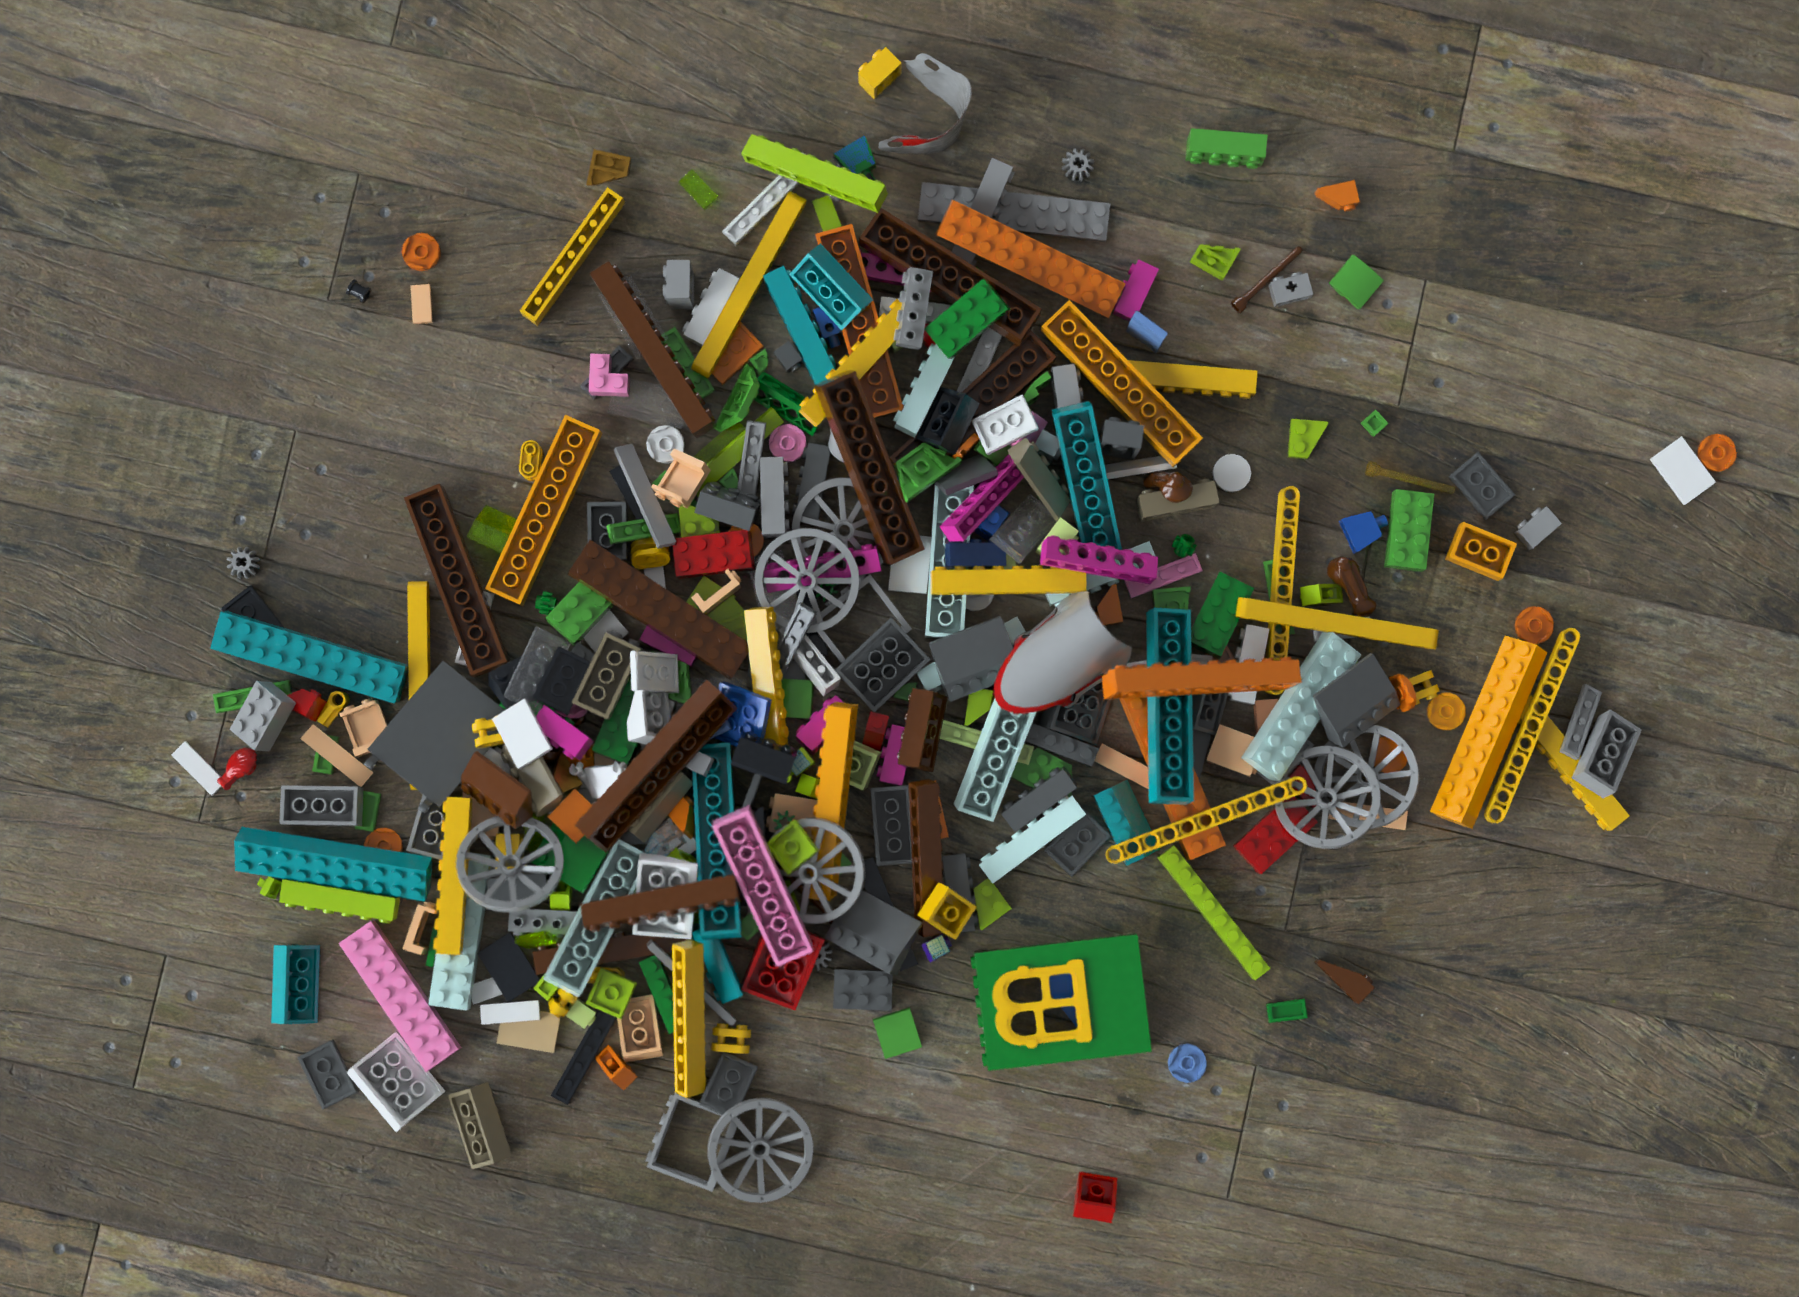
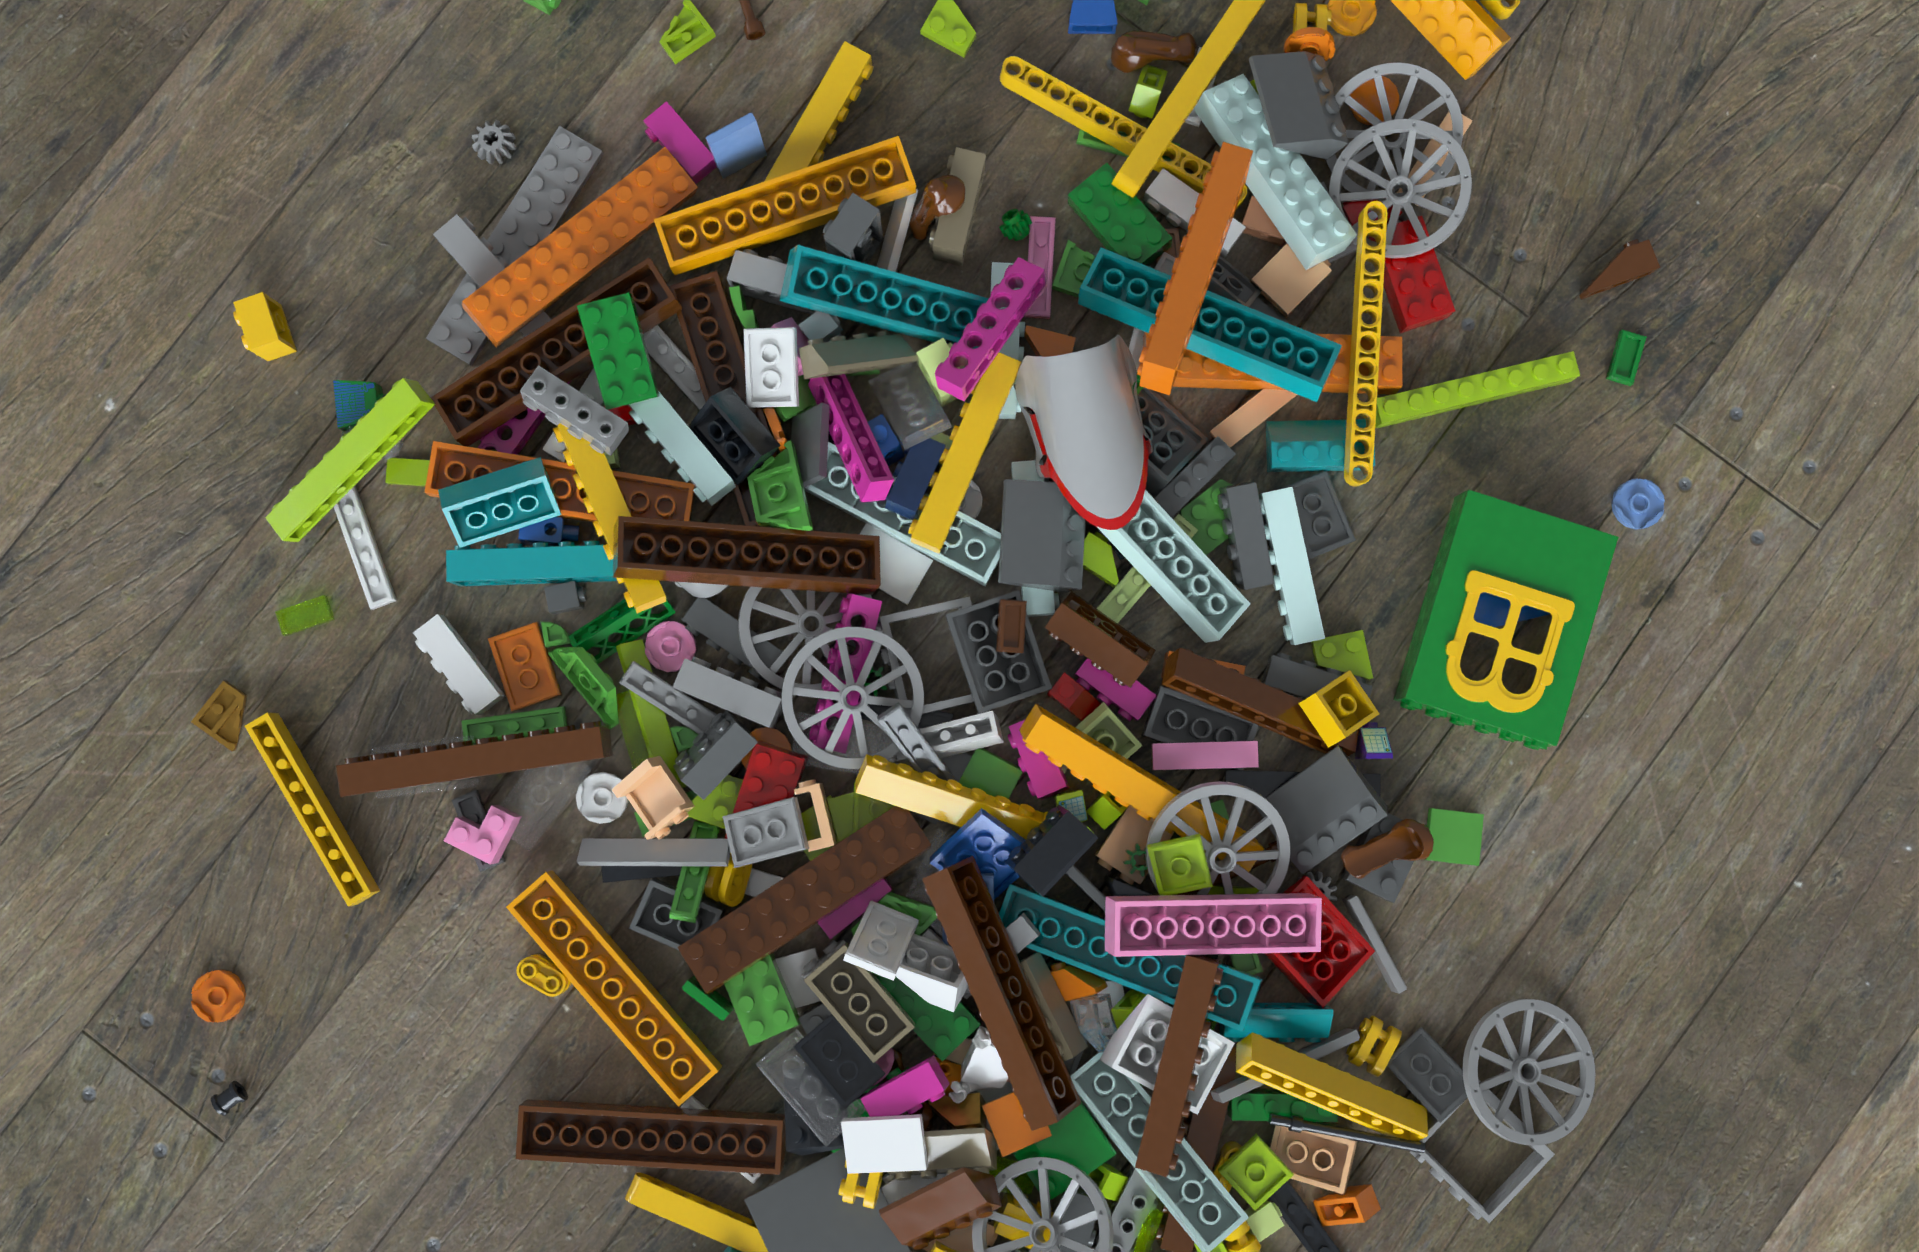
camera: 65 degrees left, 0 degrees up
(421, 304) = (283, 1024): light nougat tile -> none
(491, 528) = (606, 1063): clear neon green slope -> none
(545, 602) = (731, 1036): green gear -> none
(563, 578) = (713, 1002): none -> green tile
(655, 1005) = (1297, 1124): none -> black bar
(679, 284) = (409, 690): light grey brick -> none
(691, 563) = (765, 832): none -> light grey tile
(748, 284) = (451, 606): yellow beam -> none
(801, 1008) = (1370, 934): none -> light grey tile
(874, 835) = (1205, 755): none -> bright pink tile
(877, 995) = (1405, 841): none -> reddish brown hair
(903, 665) = (1011, 626): none -> reddish brown tile
(904, 692) = (1042, 638): bright green tile -> none
(948, 85) = (320, 244): light grey piece -> none
(1095, 1197) = (1755, 685): red slope -> none
(1231, 473) = (952, 128): white tile -> none

